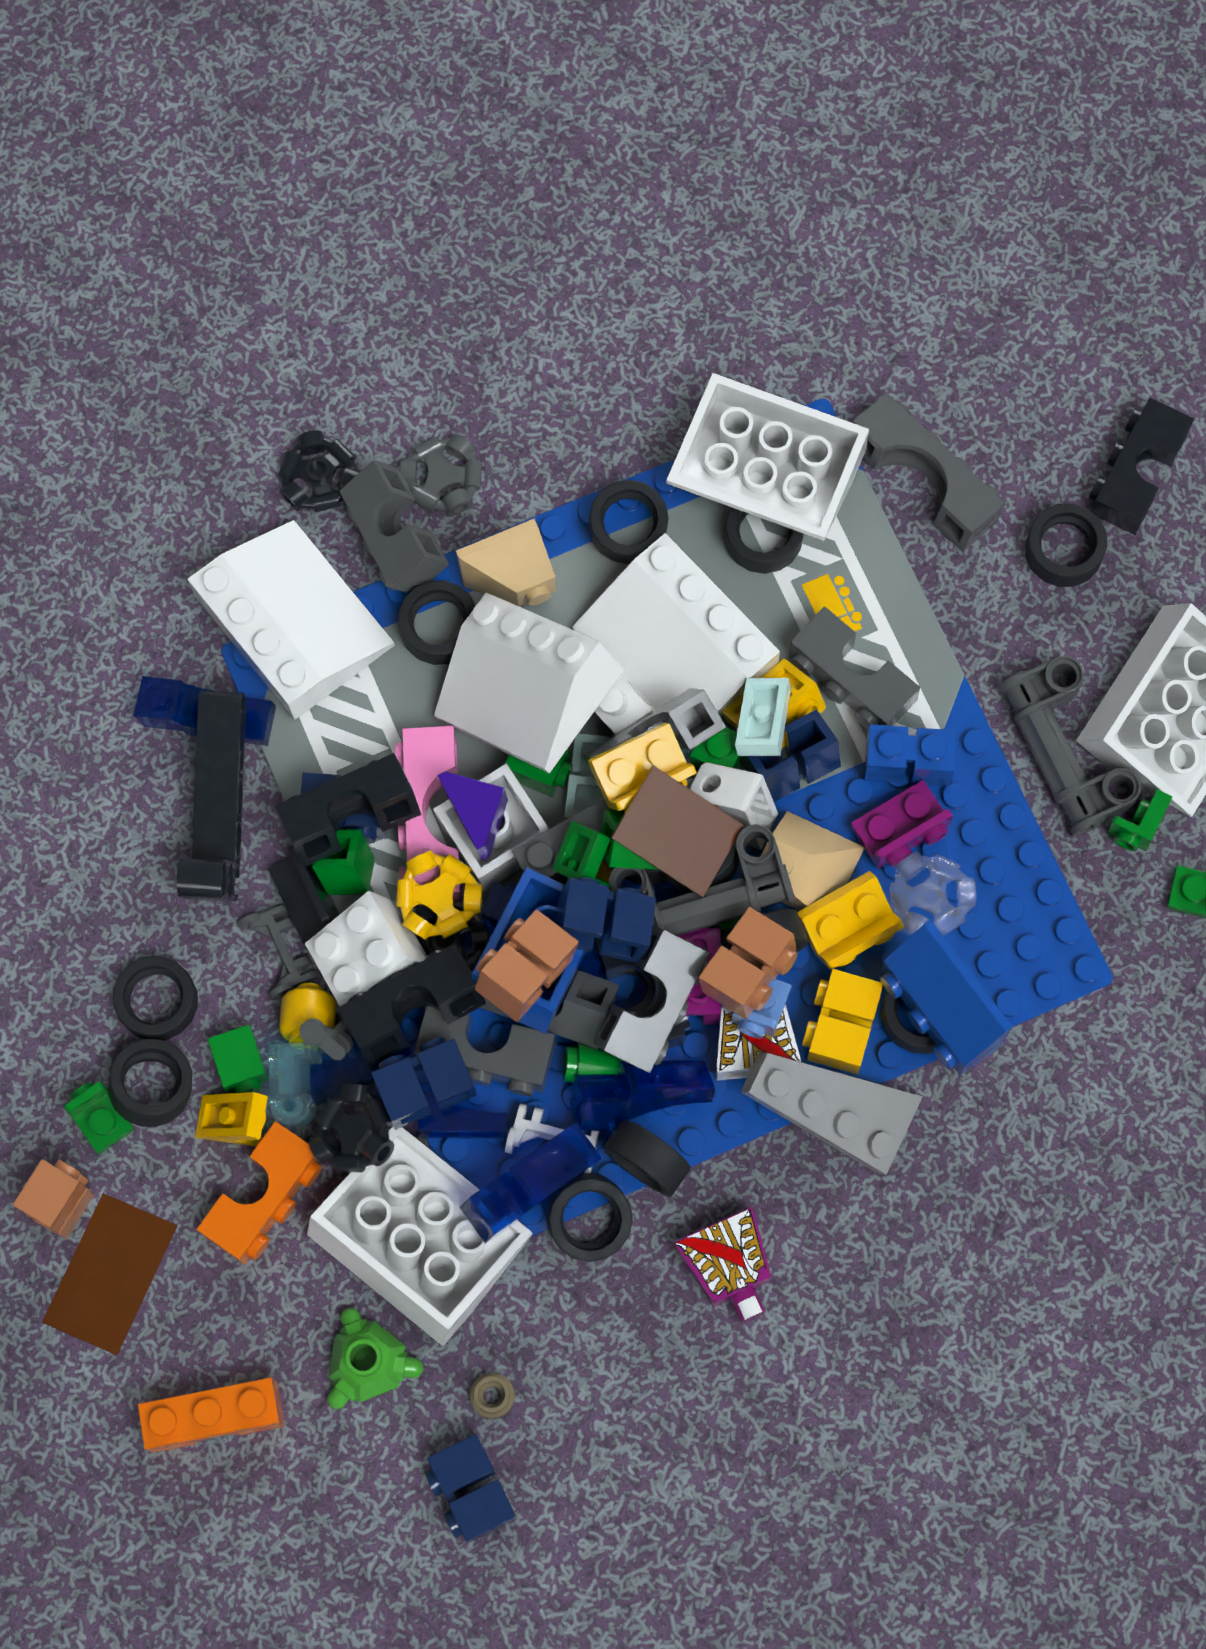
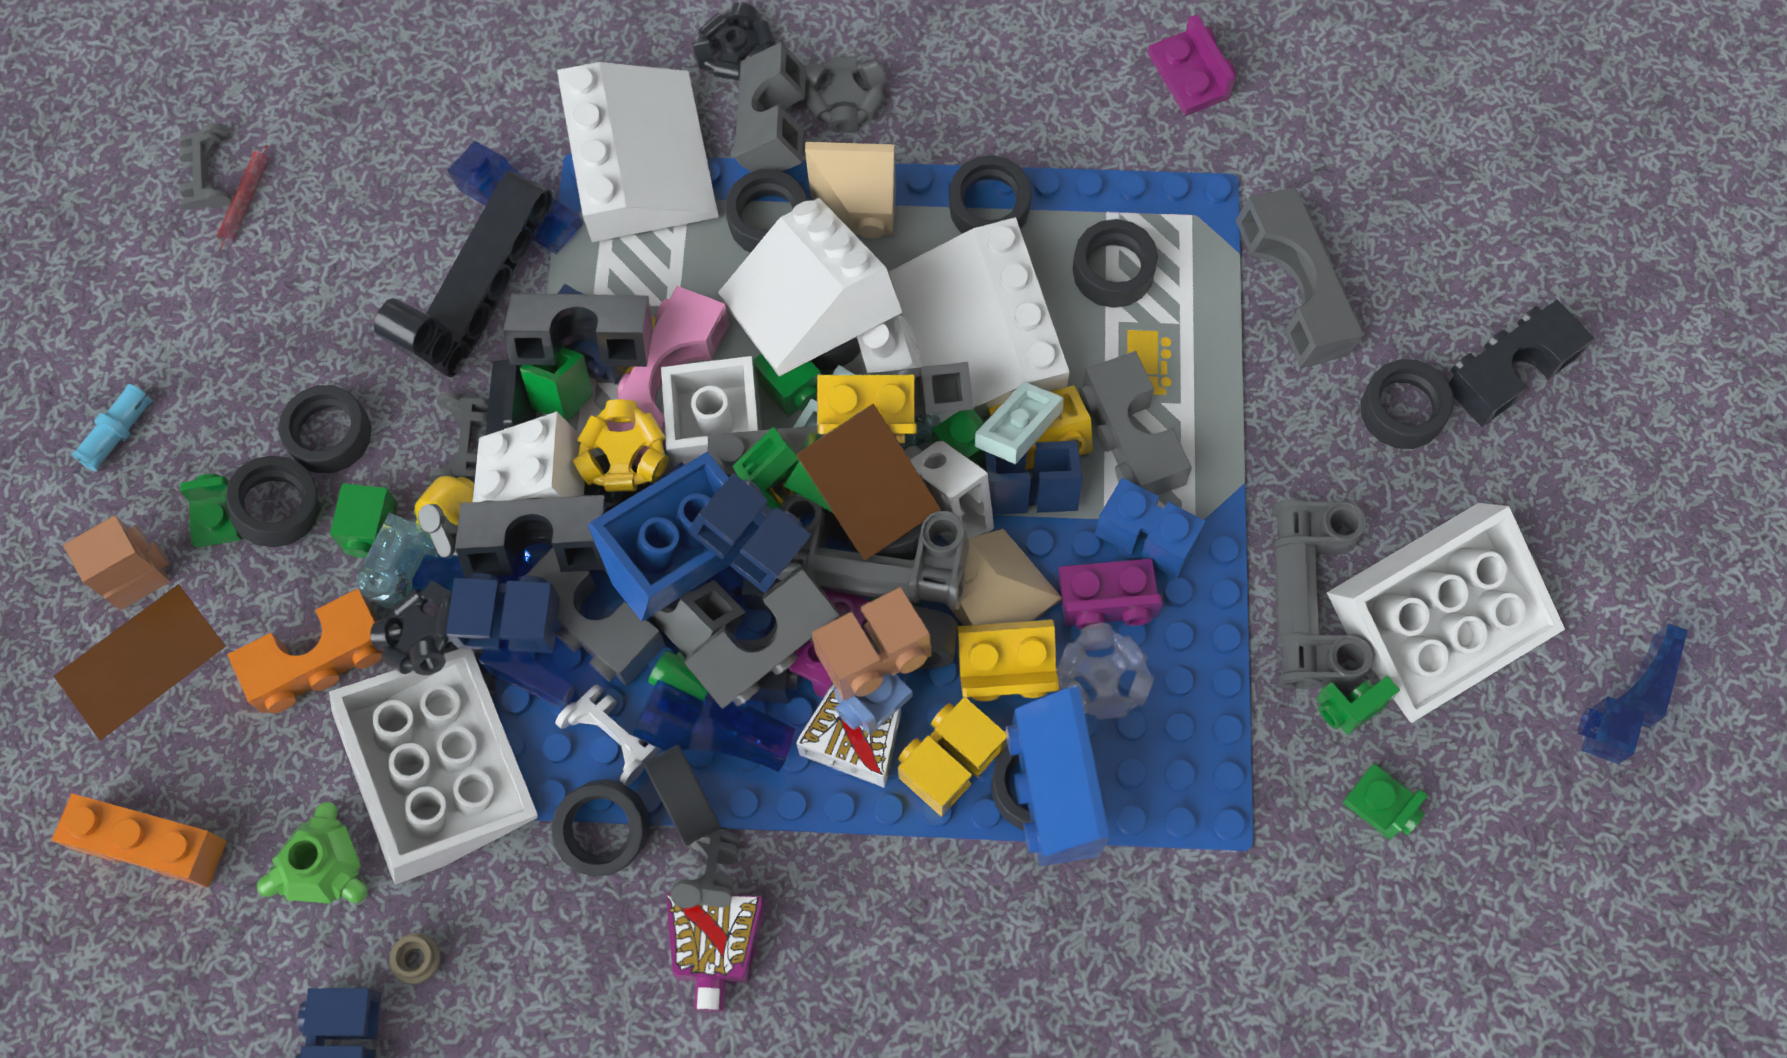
camera: 25 degrees right, 5 degrees down
(232, 1118) = (328, 570): yellow slope -> none
(478, 808) = (697, 382): dark purple slope -> none
(530, 1182) = (555, 762): clear blue slope -> none
(531, 958) = (655, 529): nougat piece -> none
(708, 1219) = (712, 887): none -> dark grey piece
(740, 312) = (1194, 67): none -> magenta bracket
(769, 457) = (1152, 192): white slope -> none
(841, 1110) = (903, 844): light grey wing -> none

